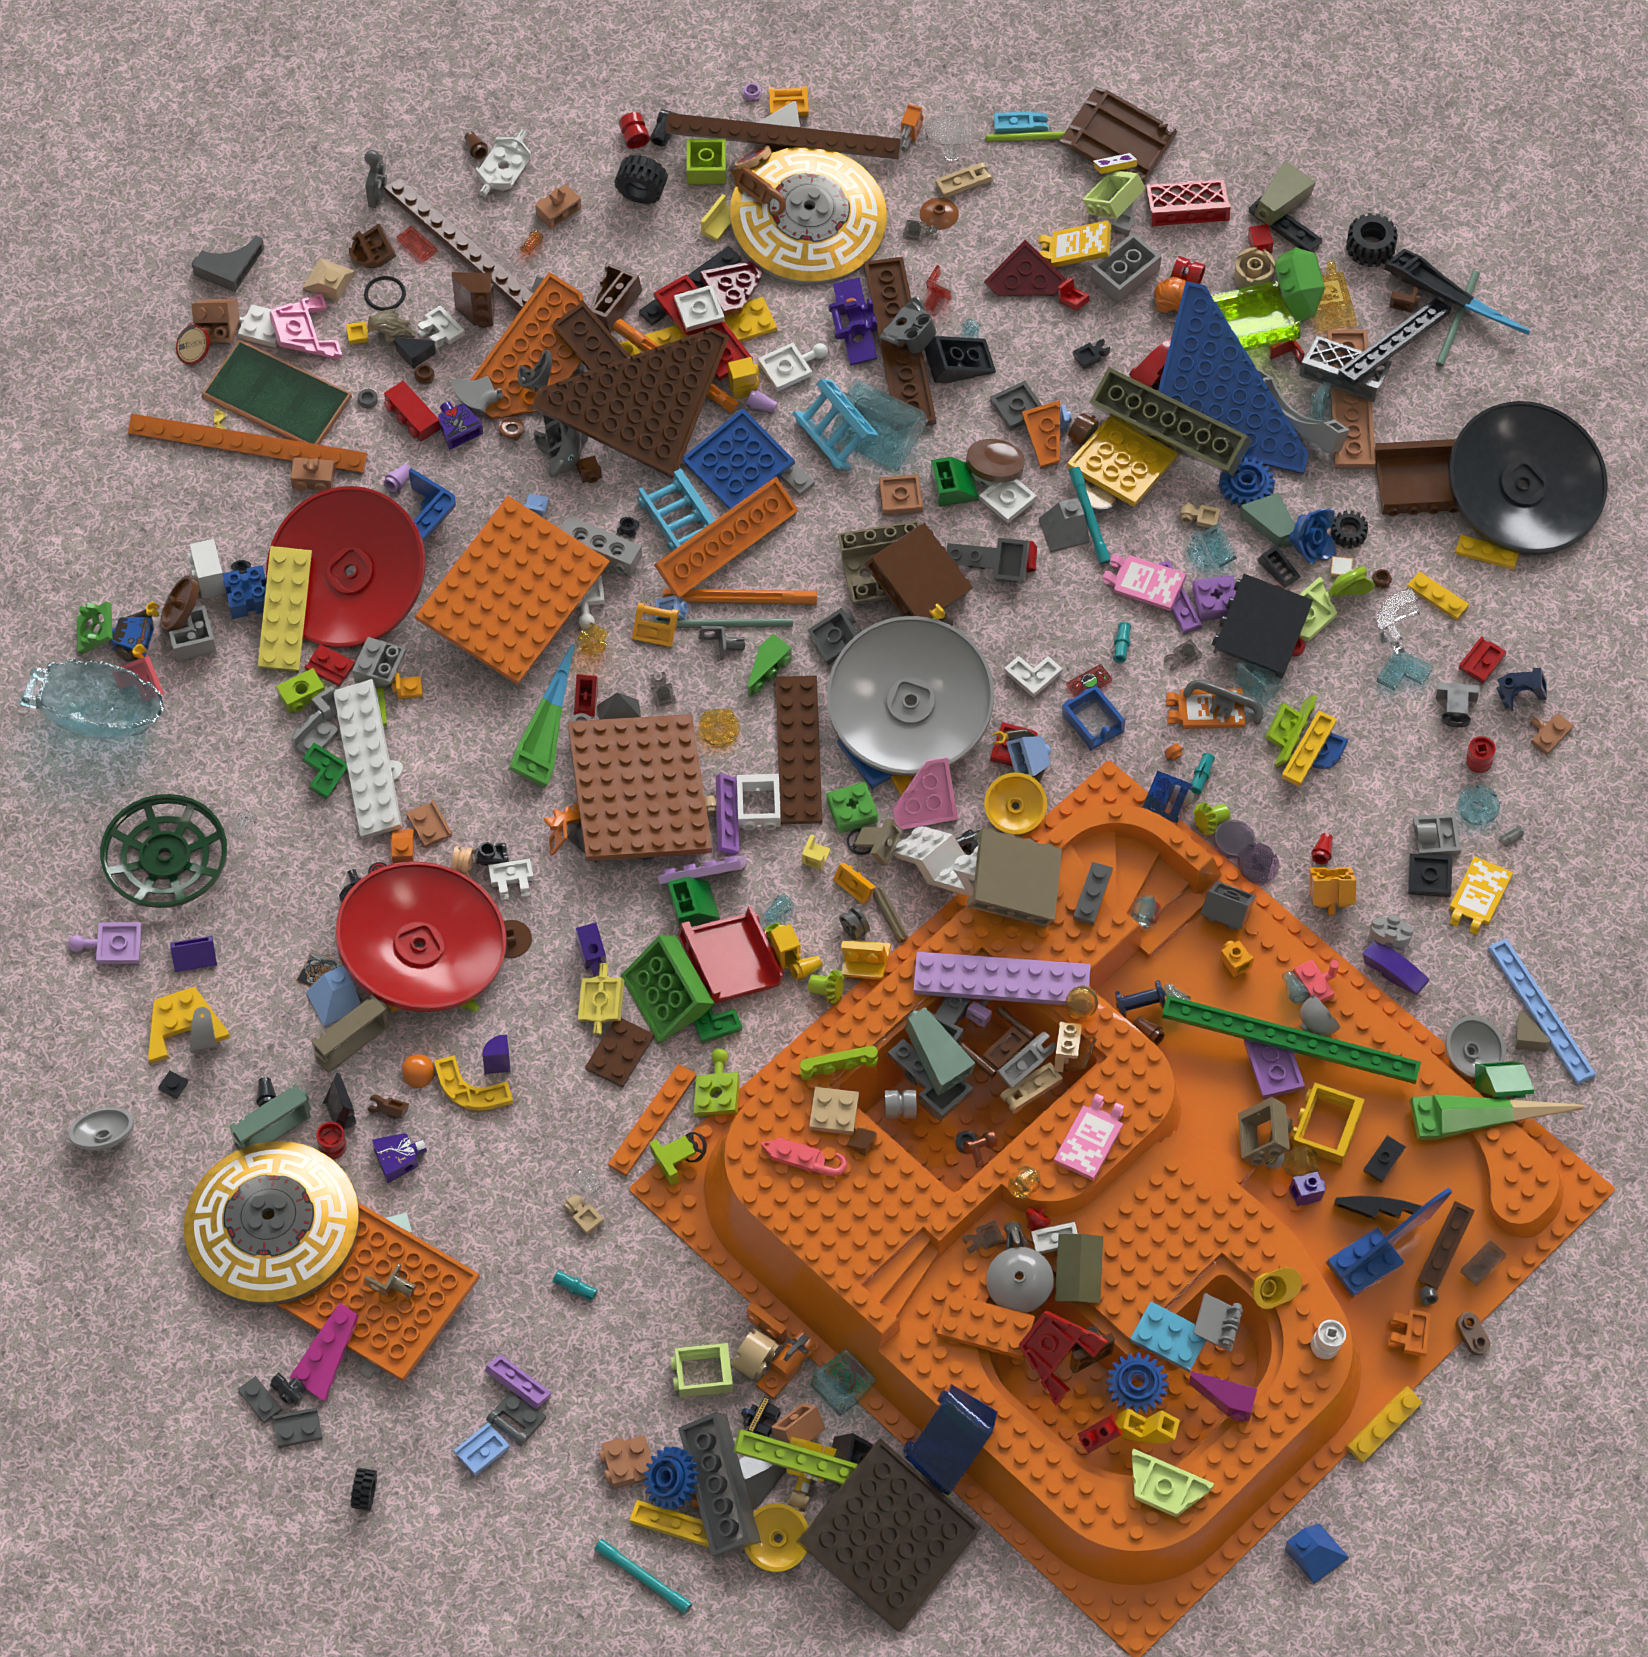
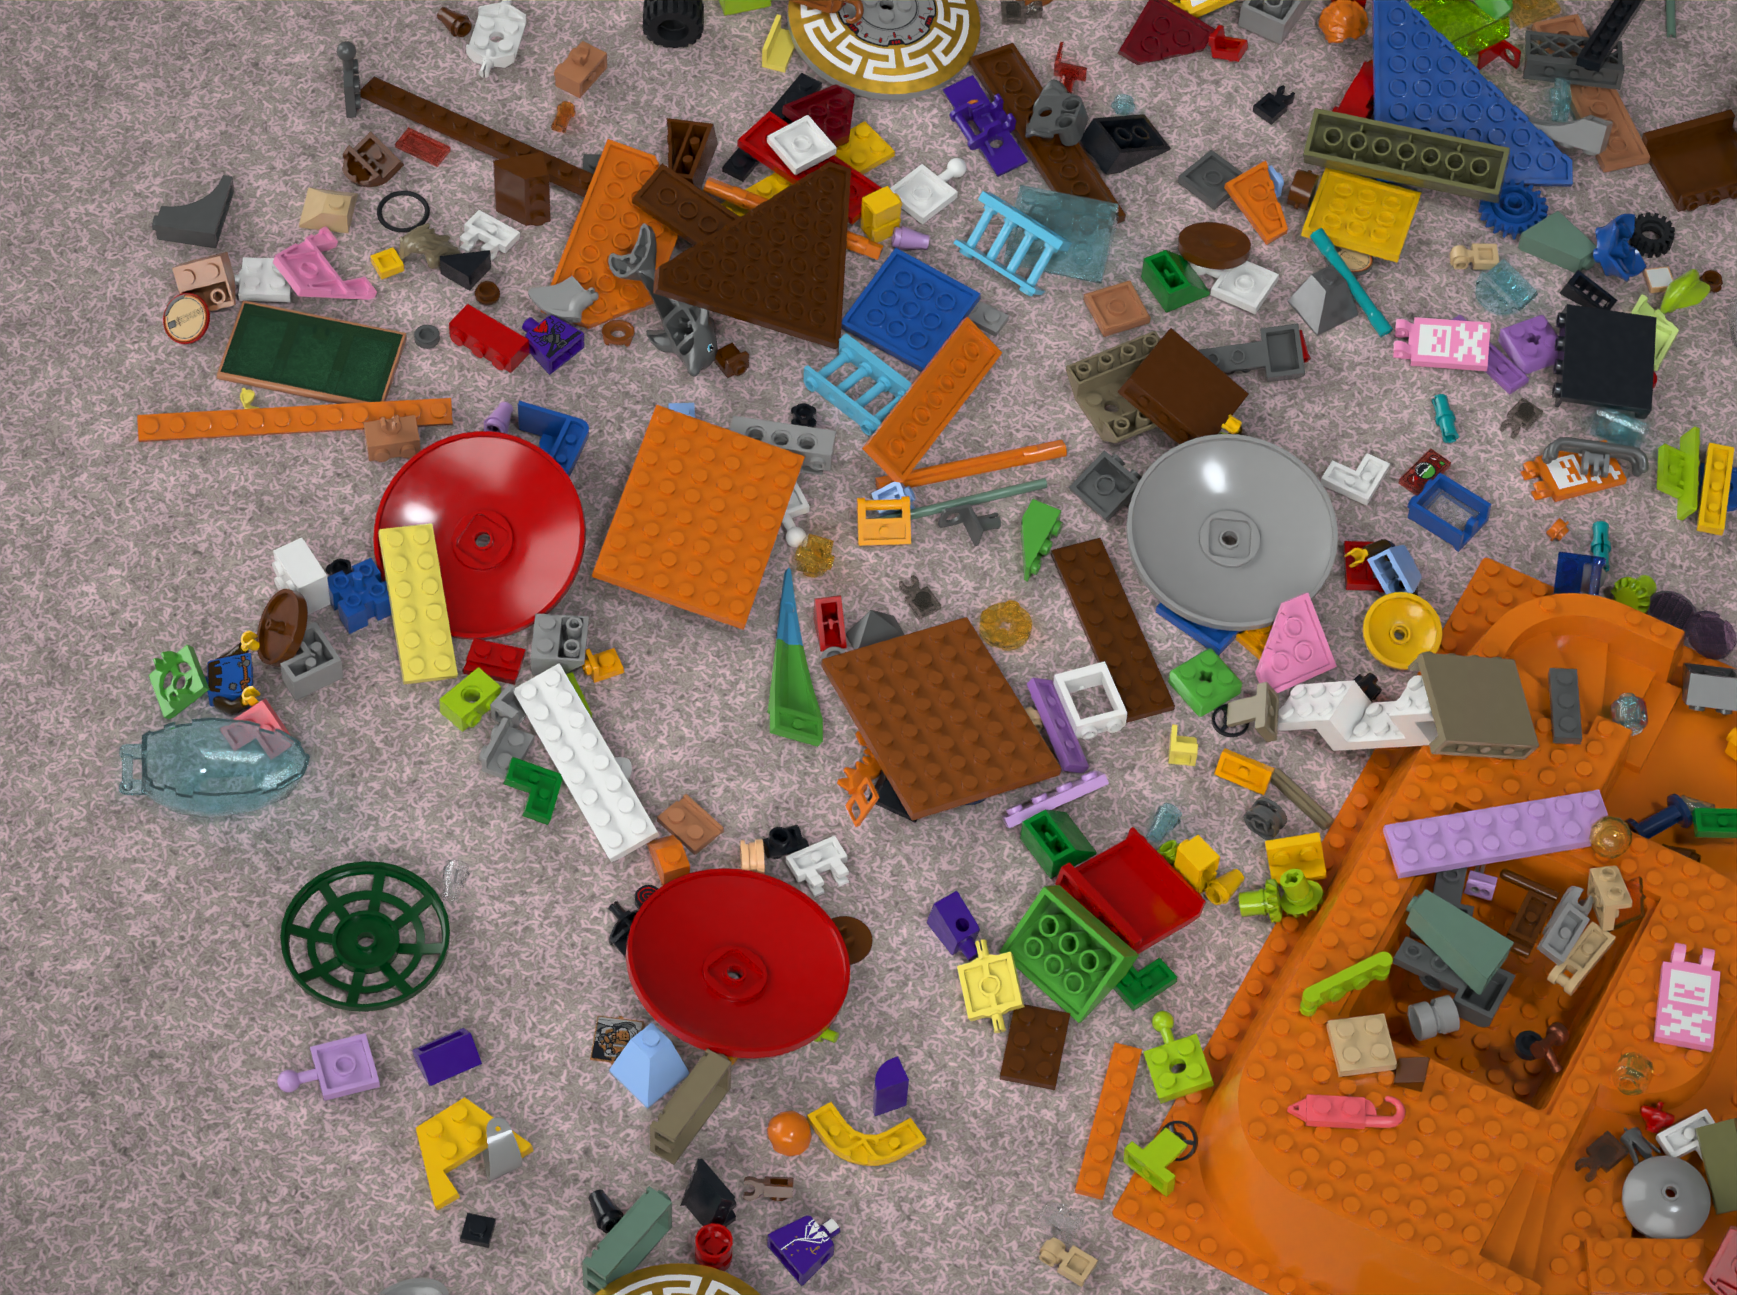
camera: 20 degrees left, 5 degrees down
(855, 986) = (1299, 894): none -> lime gear

